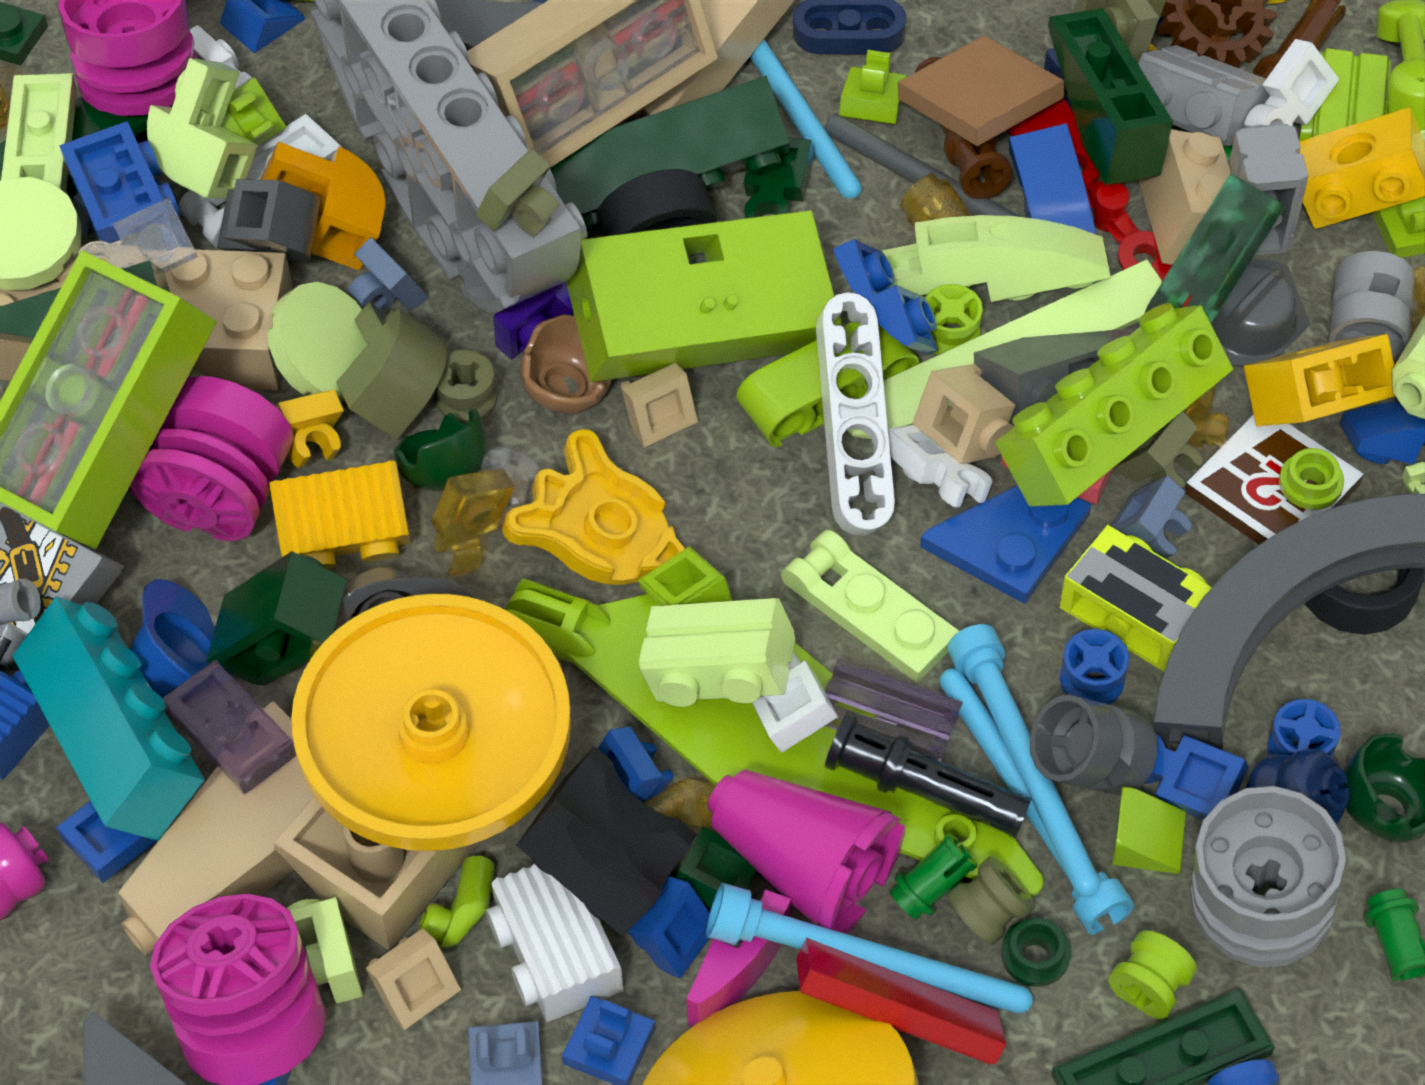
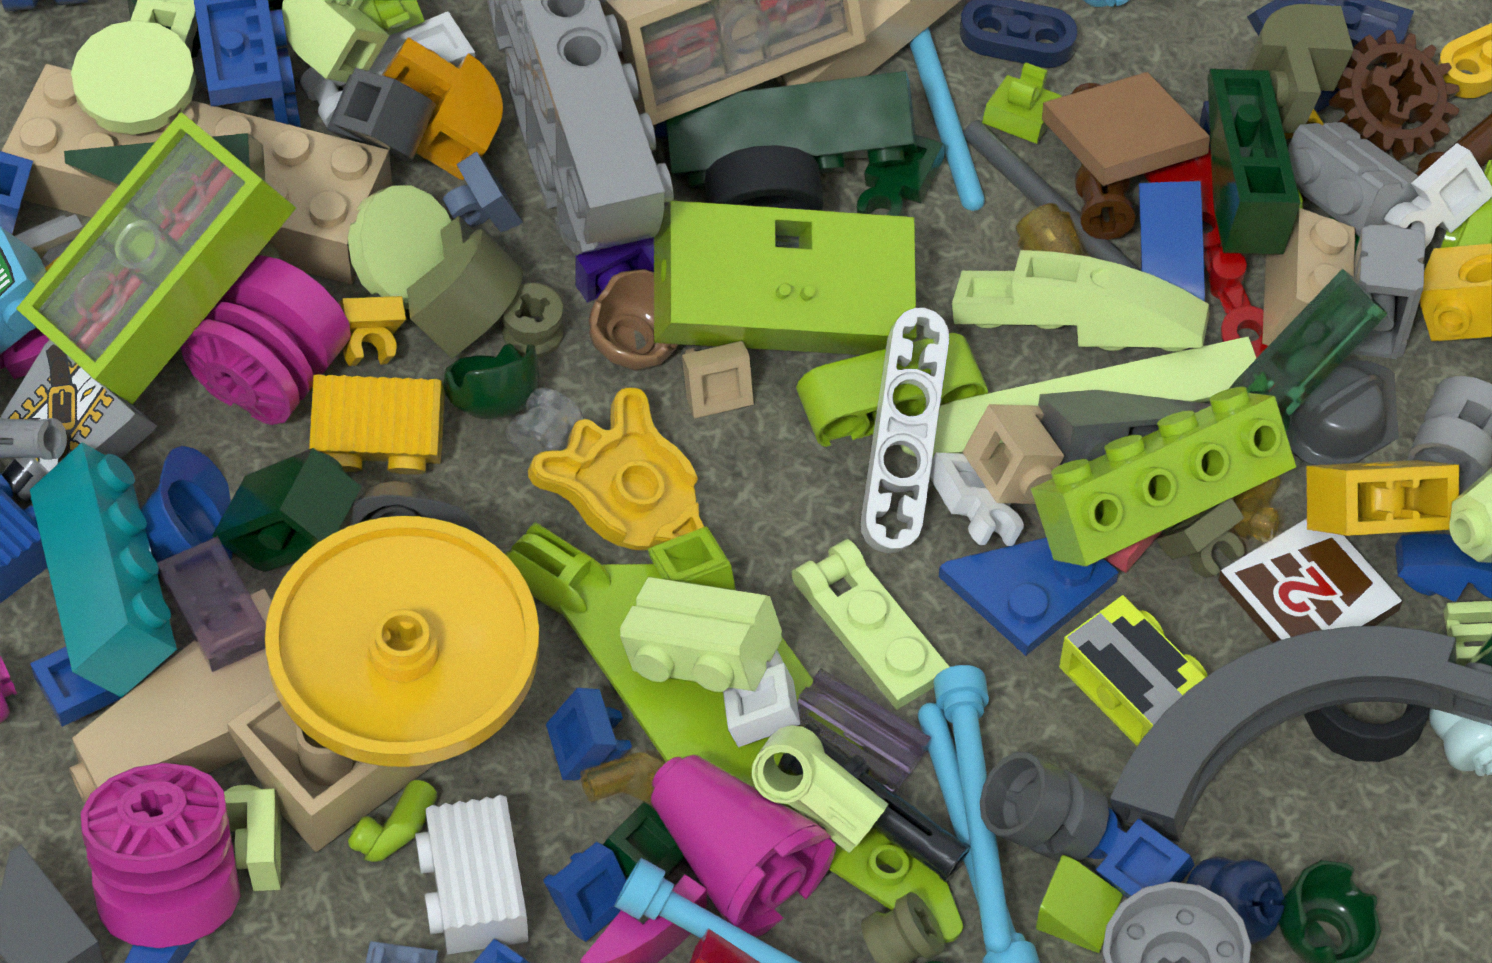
camera: 10 degrees right, 0 degrees up
(145, 236) = (255, 107): clear plate -> none
(413, 978) = (329, 883): tan tile -> none
(467, 509) = (497, 444): clear yellow plate -> none
(520, 196) = (611, 148): olive tile -> none
(605, 843) = (543, 795): black brick -> none
(879, 777) = (823, 791): none -> yellowish green piece
(897, 309) = (975, 337): blue slope -> none
(932, 877) = (852, 900): green pin -> none
(954, 306) = (1037, 342): lime wheel -> none
(1096, 653) = (1077, 719): blue wheel -> none
(1152, 510) = (1172, 592): sand blue tile -> none
(1308, 724) = (1262, 834): blue wheel -> none
(1316, 466) = (1346, 580): lime plate -> none

